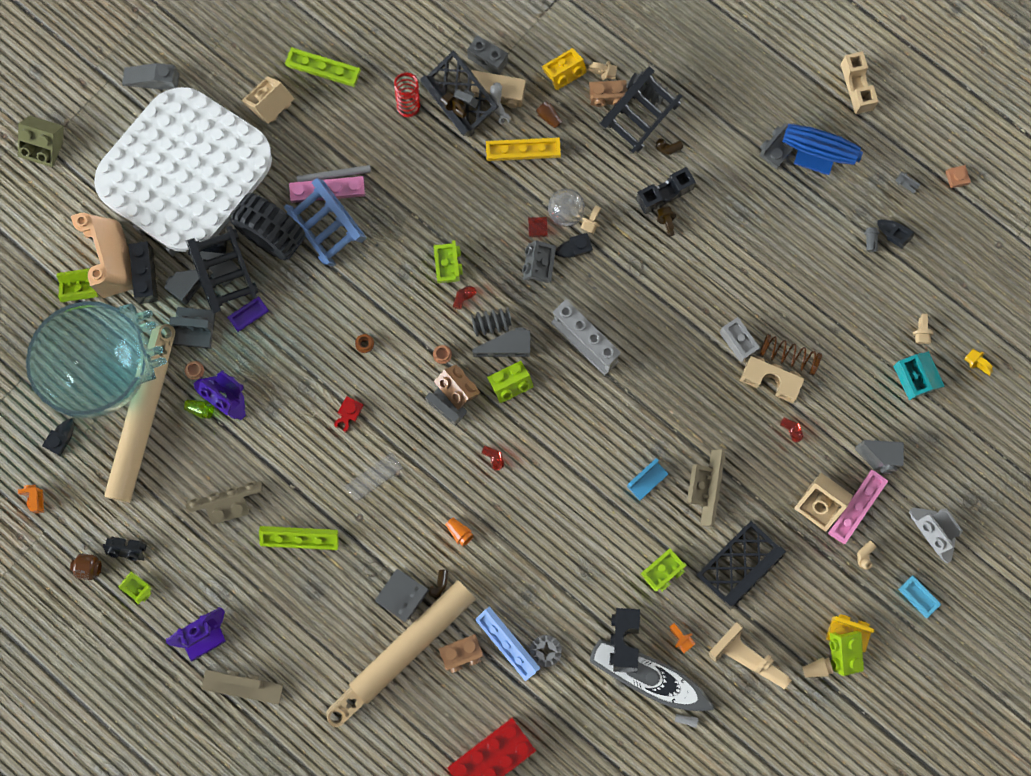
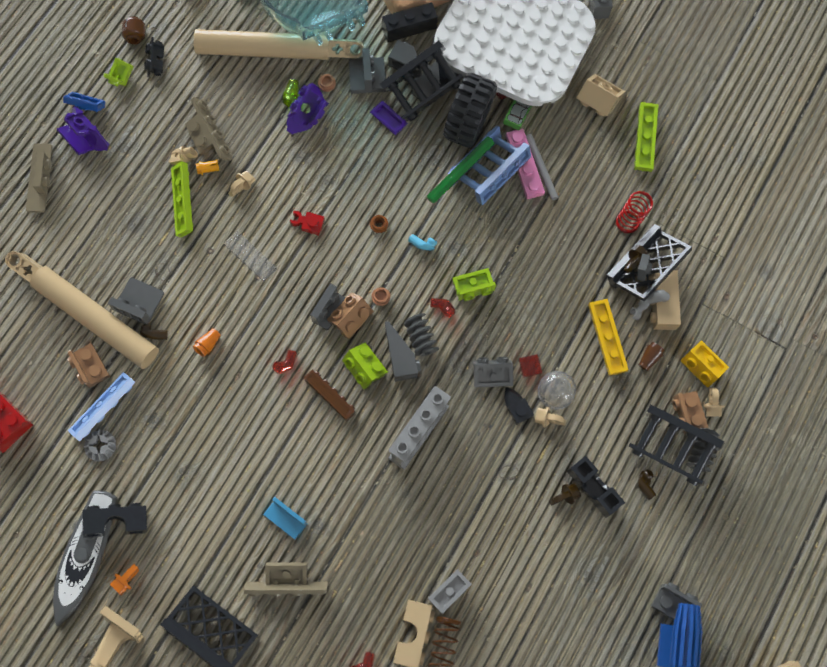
camera: 75 degrees right, 5 degrees down
(163, 629) = (84, 102): none -> blue plate
(248, 532) = (182, 154): none -> tan piece
(266, 508) = (206, 167): none -> light orange pin
(274, 186) = (517, 115): none -> tile
(290, 471) = (243, 181): none -> tan piece
(326, 250) = (460, 170): none -> green axle
(395, 305) = (420, 244): none -> medium azure arm
(487, 55) = (697, 285): dark grey brick -> none
(534, 419) = (330, 395): none -> reddish brown piece
(663, 570) = (192, 549): lime bracket -> none
(691, 721) = (43, 596): light grey piece -> none

